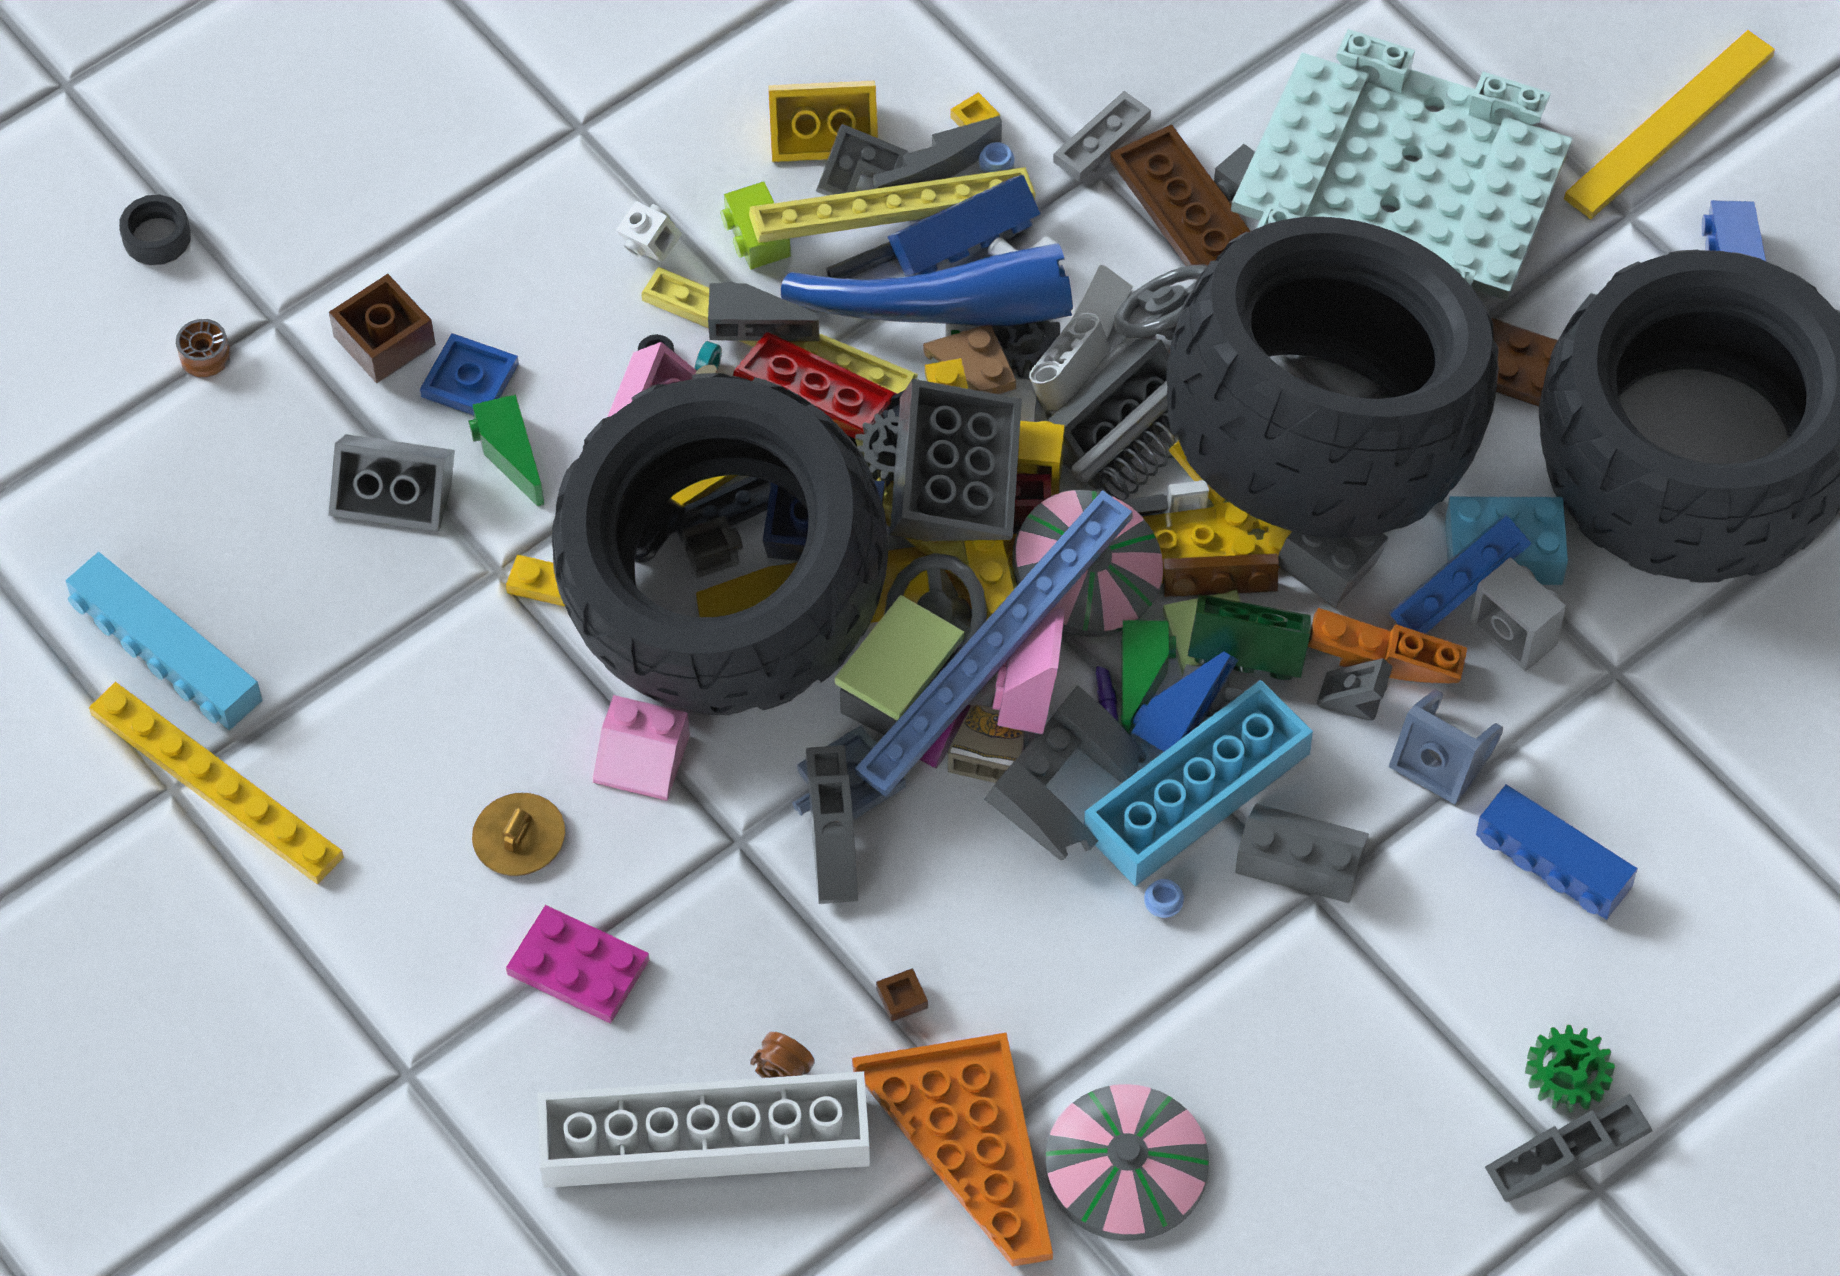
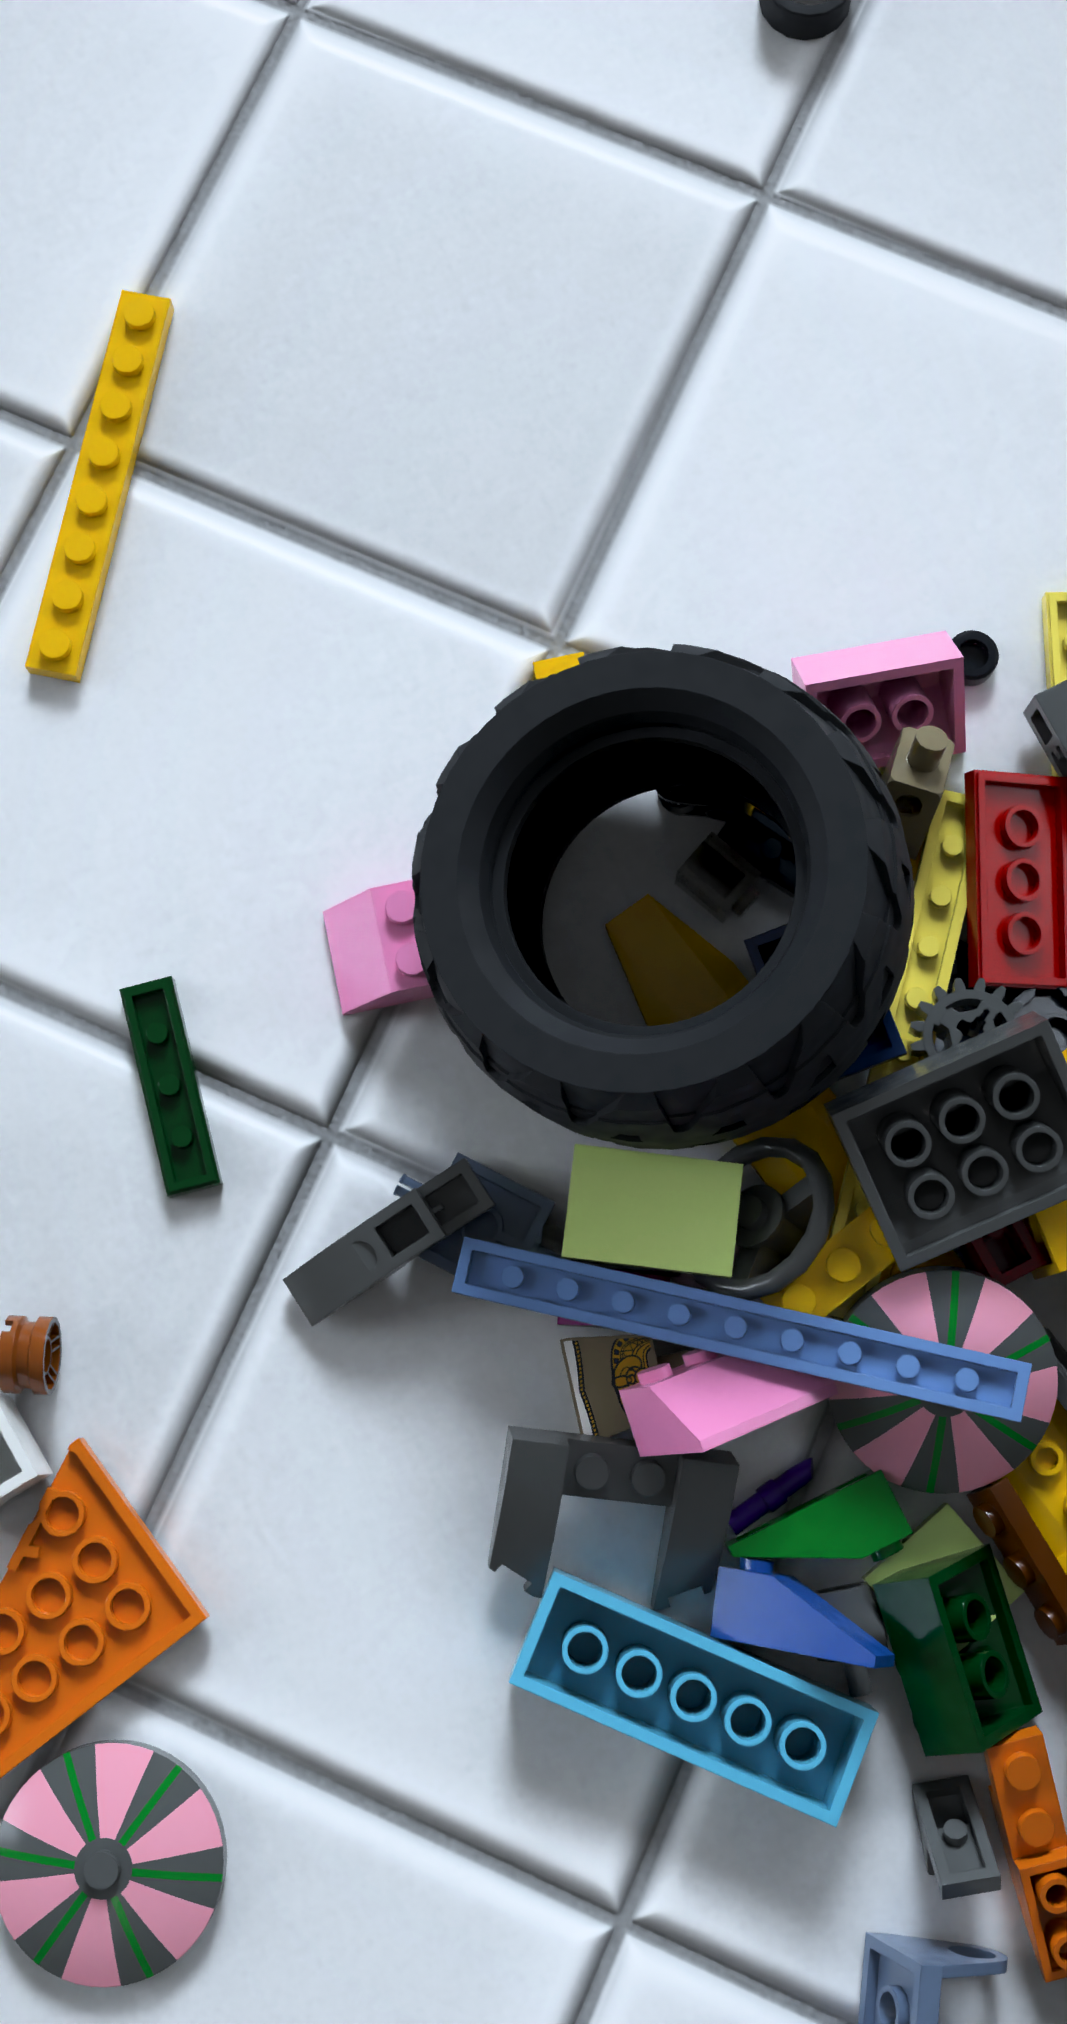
camera: 65 degrees right, 20 degrees up
(163, 641) = (247, 319): medium azure brick -> none
(193, 338) = (676, 116): dark orange wheel -> none
(382, 328) = (807, 315): reddish brown brick -> none
(390, 482) = (603, 448): dark grey slope -> none
(468, 374) = (809, 457): blue tile -> none
(506, 443) = (742, 542): green slope -> none
(518, 834) = (204, 865): pearl gold shield -> none
(577, 964) = (63, 1031): dark pink plate -> none
(654, 916) = (171, 1087): none -> dark green tile
(709, 355) = (990, 727): teal tile -> none
(902, 994) = (202, 1453): reddish brown plate -> none
(1164, 898) = (508, 1723): light blue plate -> none
(1301, 852) = (674, 1882): dark grey slope -> none

